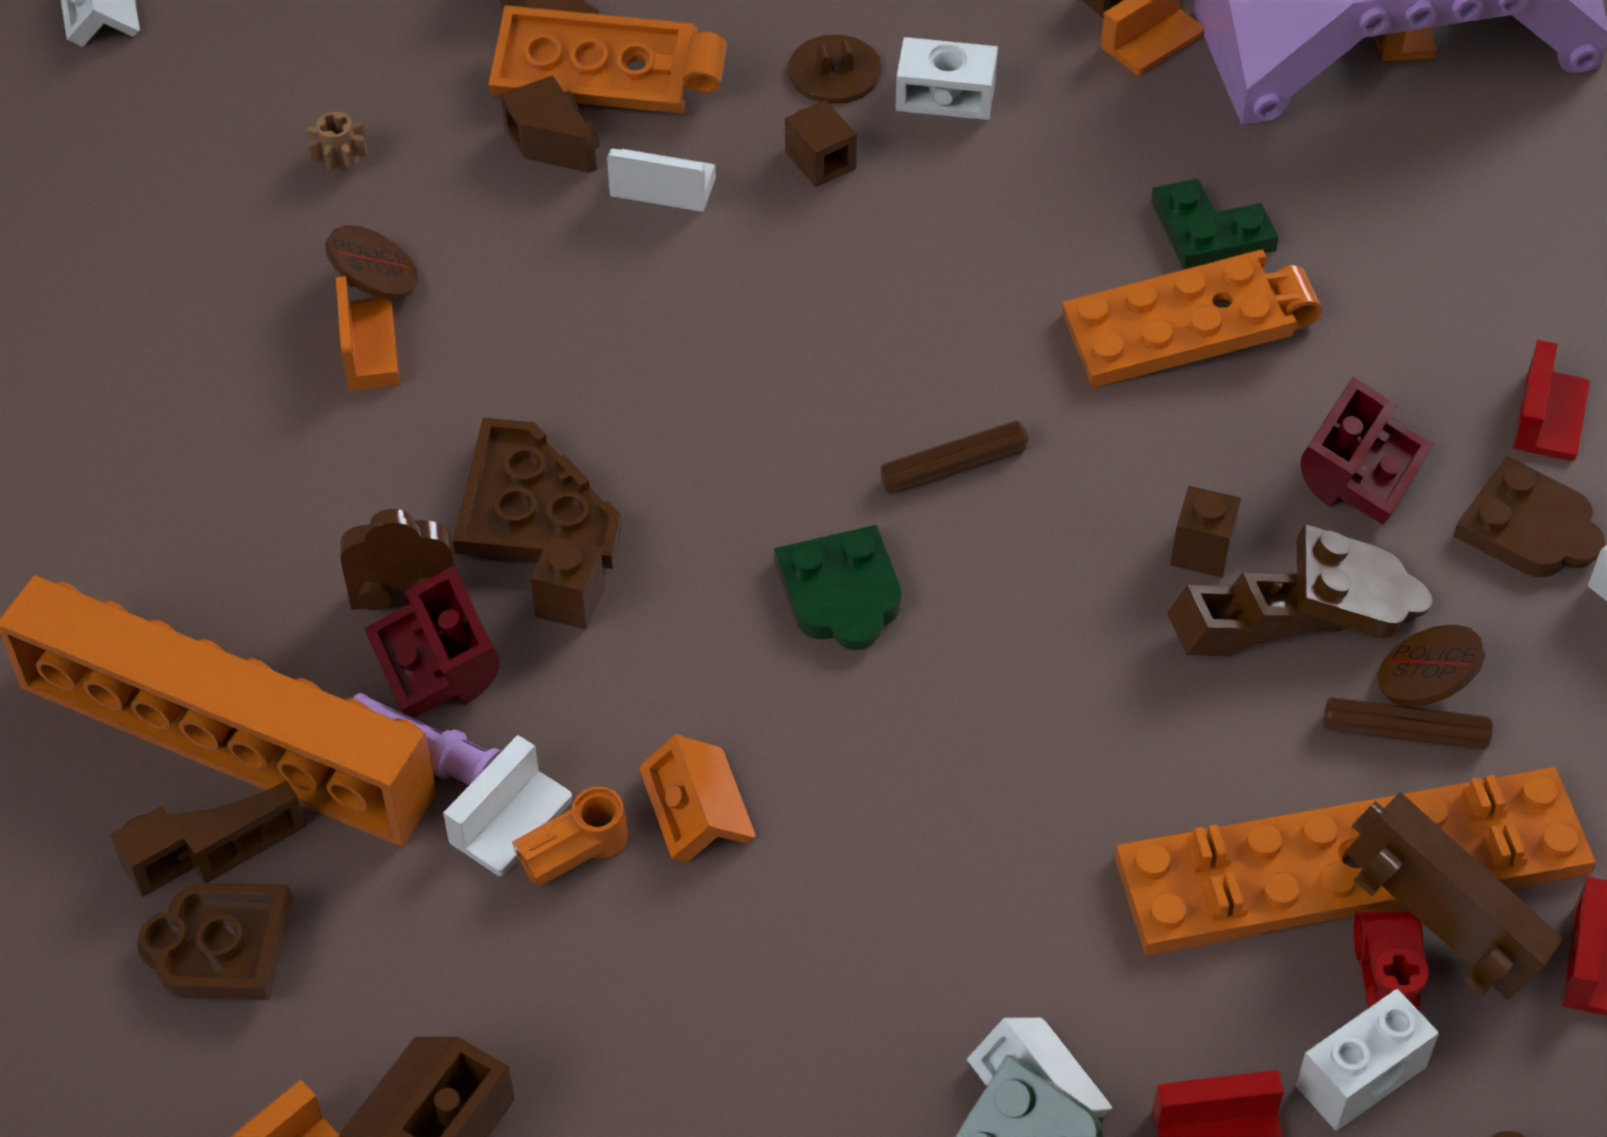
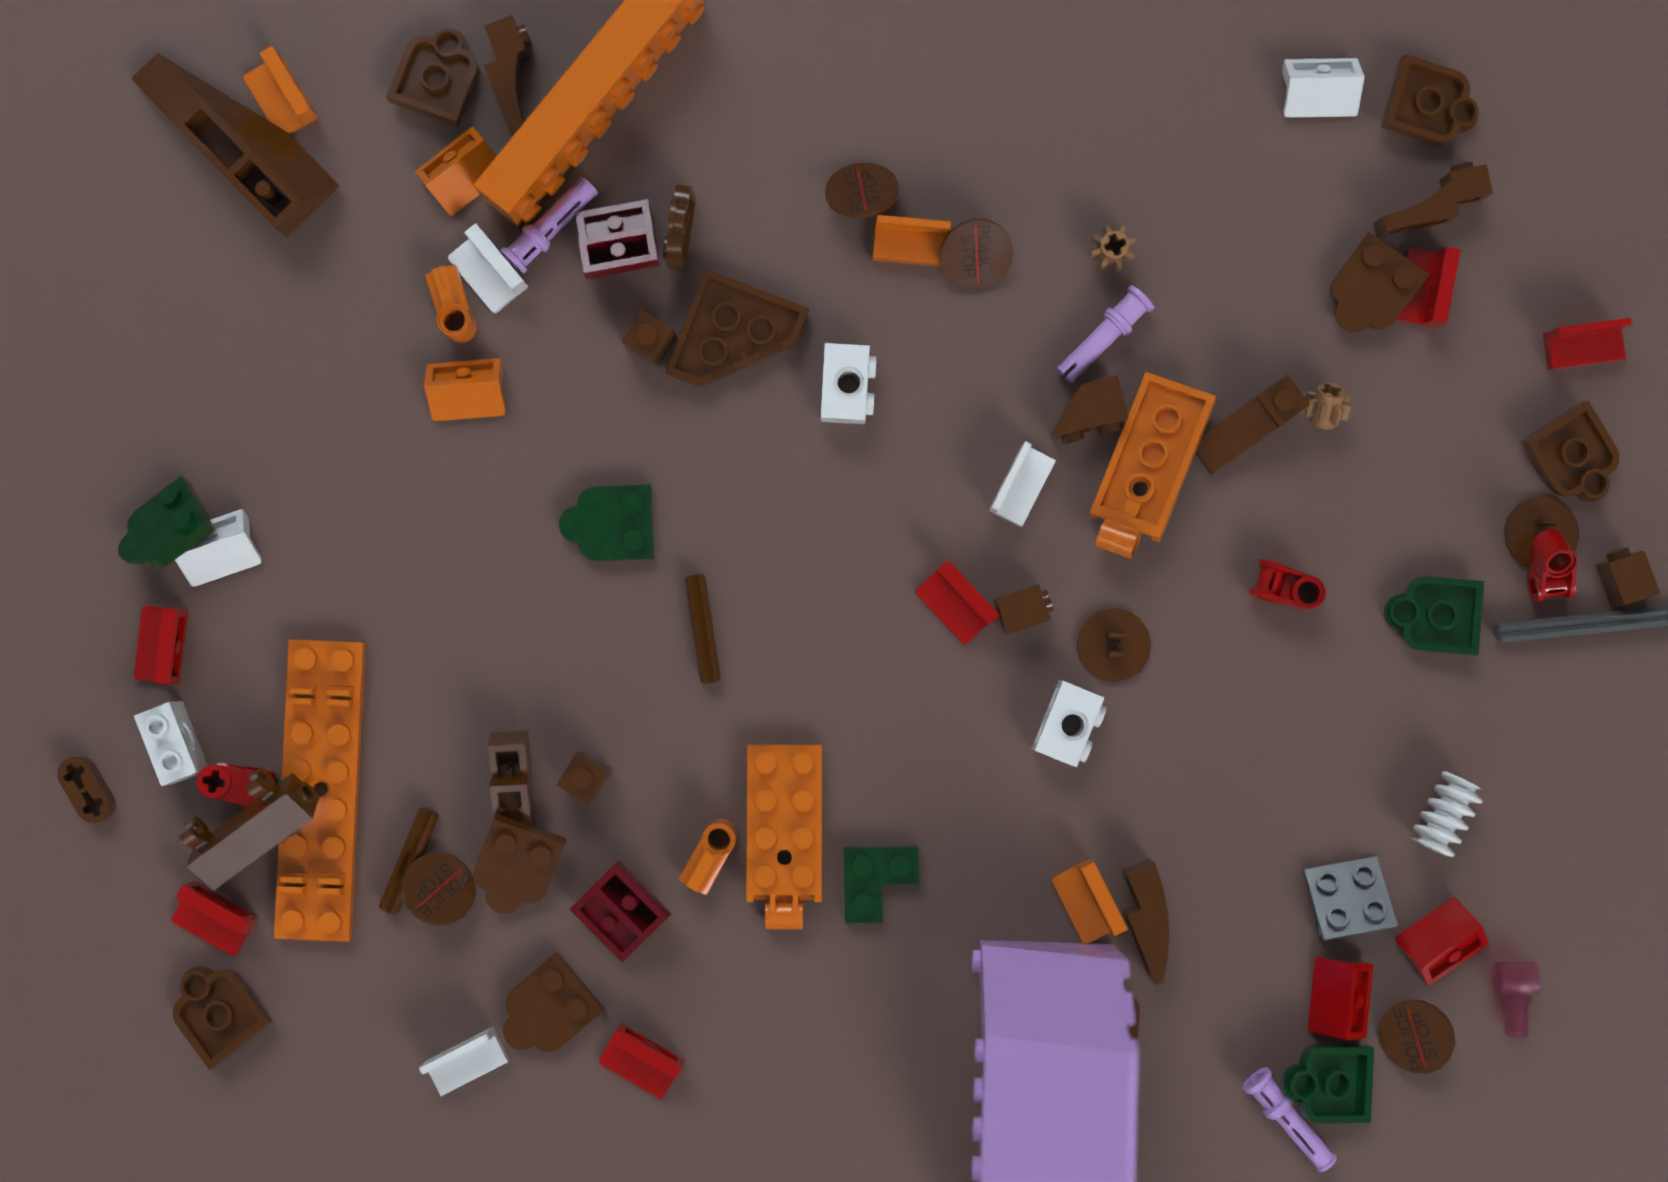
camera: 100 degrees right, 35 degrees up
(307, 392) = (861, 190): none -> reddish brown piece
(358, 877) = (456, 169): none -> orange panel
(432, 124) = (1117, 322): none -> lavender pin
(577, 364) = (843, 361): none -> white brick
(828, 208) = (956, 602): none -> red panel
(1234, 378) = (708, 858): none -> orange piece

